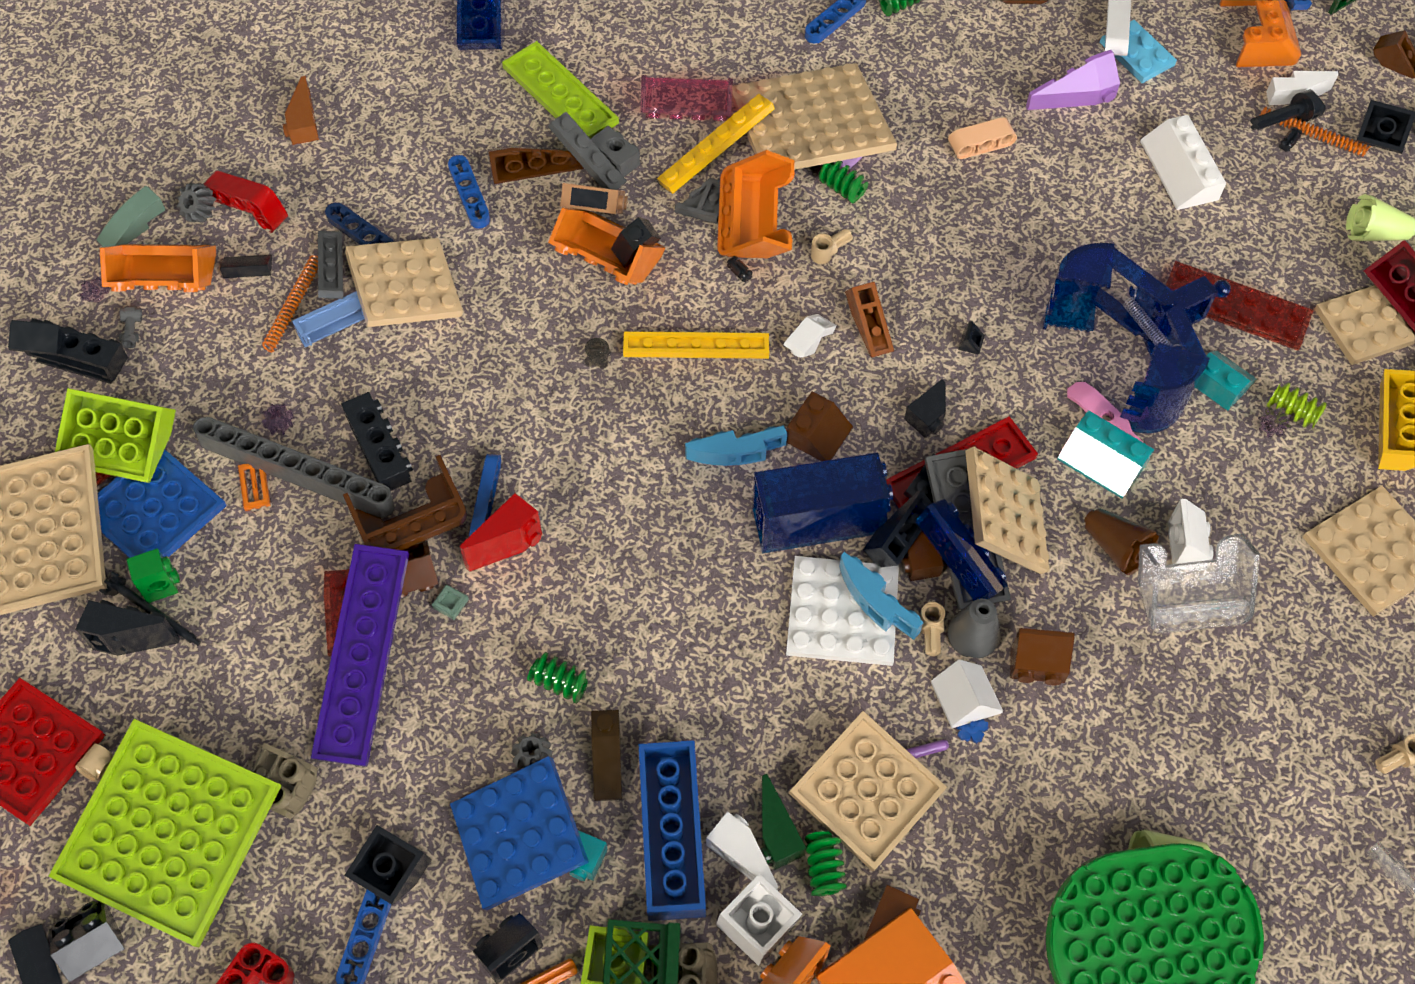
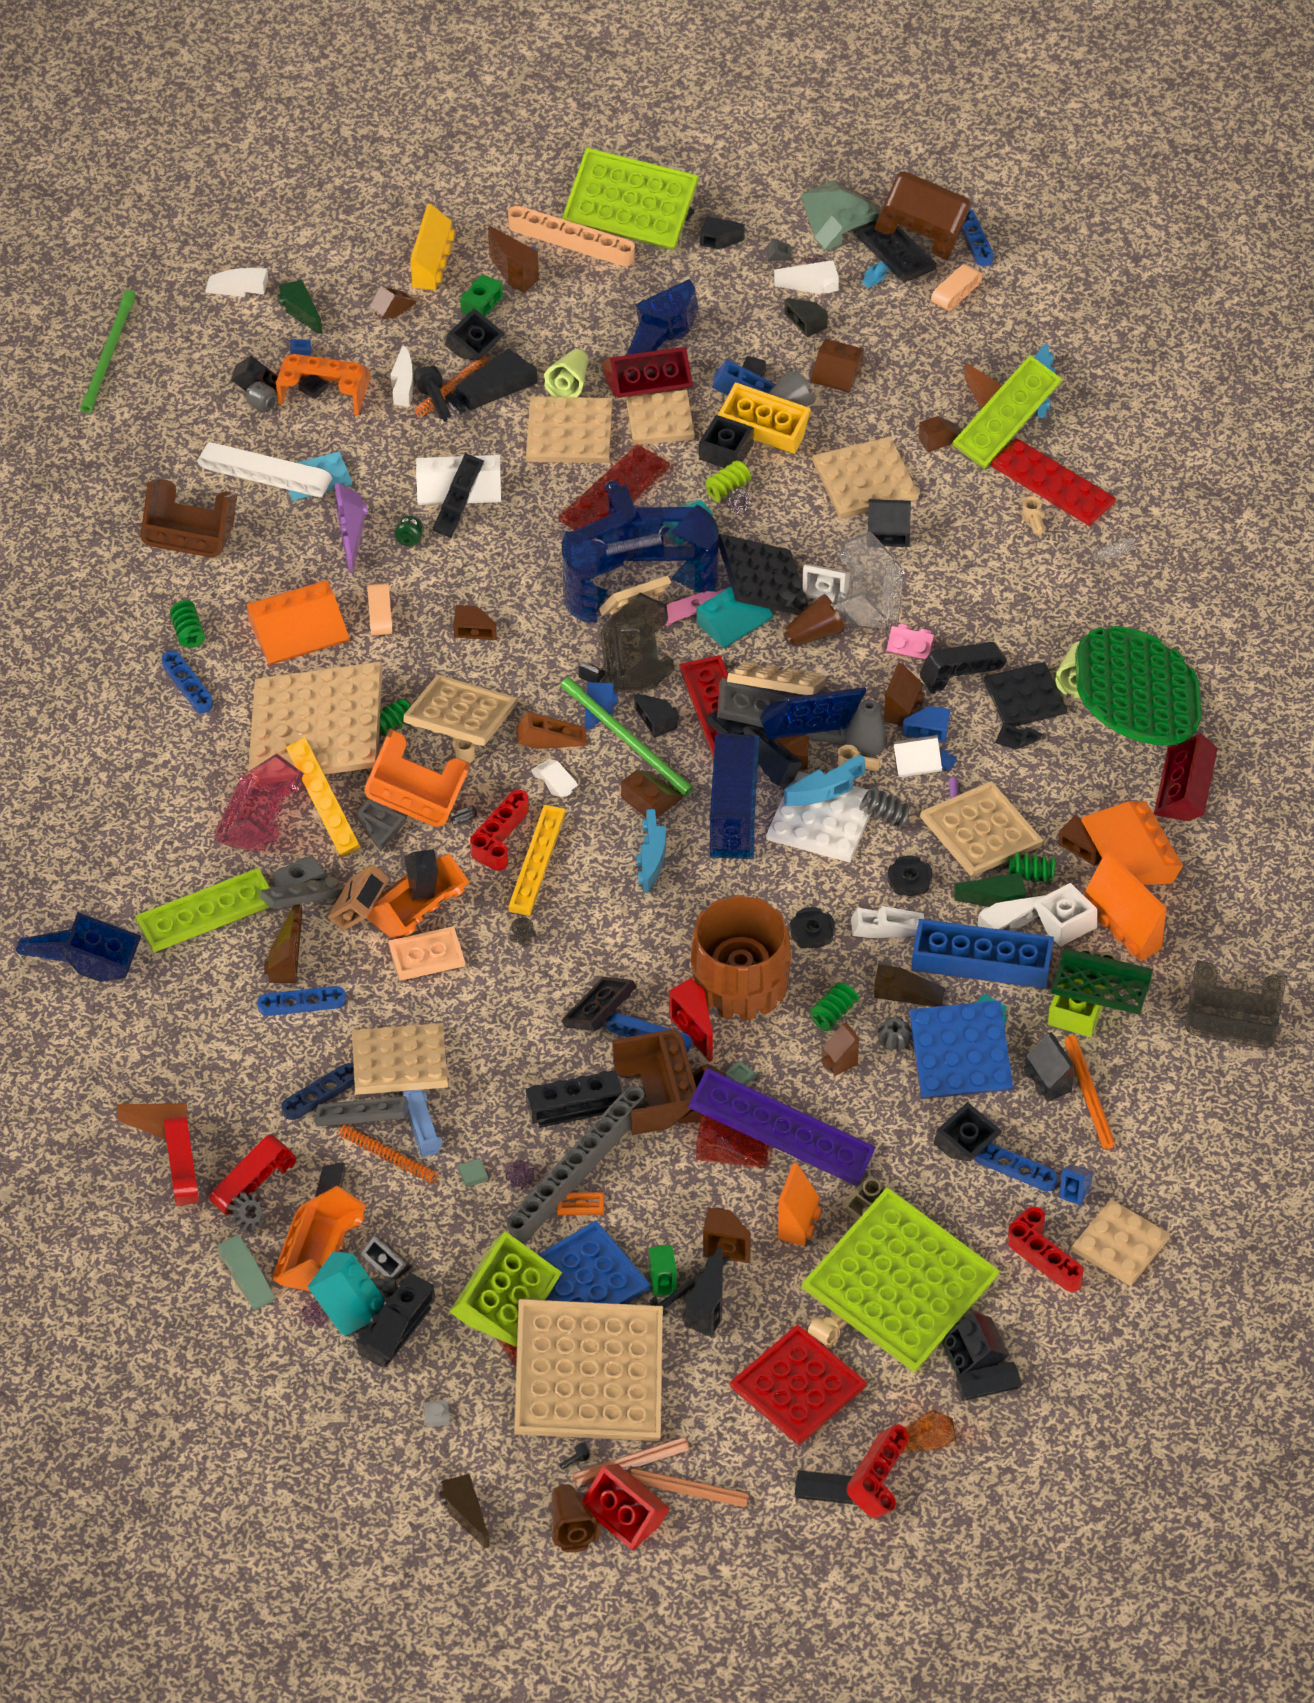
camera: 75 degrees left, 10 degrees down
(92, 295) = (346, 1292): none -> teal slope
(166, 332) = (385, 1258): none -> black slope
(206, 628) = (727, 1232): none -> reddish brown slope
(243, 139) = (181, 1161): none -> red beam
(247, 693) = (797, 1208): none -> orange slope
(280, 380) = (472, 1173): none -> sand green tile
(490, 698) = (841, 1050): none -> reddish brown slope
(509, 440) = (599, 1003): none -> black plate
(548, 277) = (426, 953): none -> light nougat plate
(579, 553) = (741, 956): none -> dark orange wheel
(670, 646) = (812, 938): none -> black plate
(699, 713) = (885, 923): none -> white slope
(705, 292) = (487, 841): none -> red beam
(784, 710) = (909, 886): none -> black plate
(864, 670) = (886, 806): none -> dark grey piece
(866, 229) = (460, 710): none -> tan plate
(917, 323) = (675, 779): none -> bright green piece
(925, 352) = (603, 695): none -> blue slope
(939, 77) = (297, 622): none -> orange slope
(993, 216) = (473, 623): none -> reddish brown slope
(1012, 366) = (631, 646): none -> clear smoke windscreen
(1017, 697) = (928, 722): none -> blue slope
(1035, 805) = (1015, 738): none -> black slope
(1080, 348) = (620, 599): none -> tan plate
(1095, 137) = (409, 530): none -> dark green head
(1108, 803) = (1025, 694): none -> black plate
(1124, 714) = (959, 661): none -> black beam
(1138, 651) = (910, 642): none -> bright pink bracket
(1159, 163) = (458, 495): none -> black slope
(1162, 463) = (762, 575): none -> black plate
(1250, 19) = (313, 386): none -> black plate
(1305, 246) = (569, 429): none -> tan plate
(1307, 585) = (890, 521): none -> black slope
(1338, 163) = (496, 379): none -> black slope
(1352, 390) = (725, 442): none -> black brick

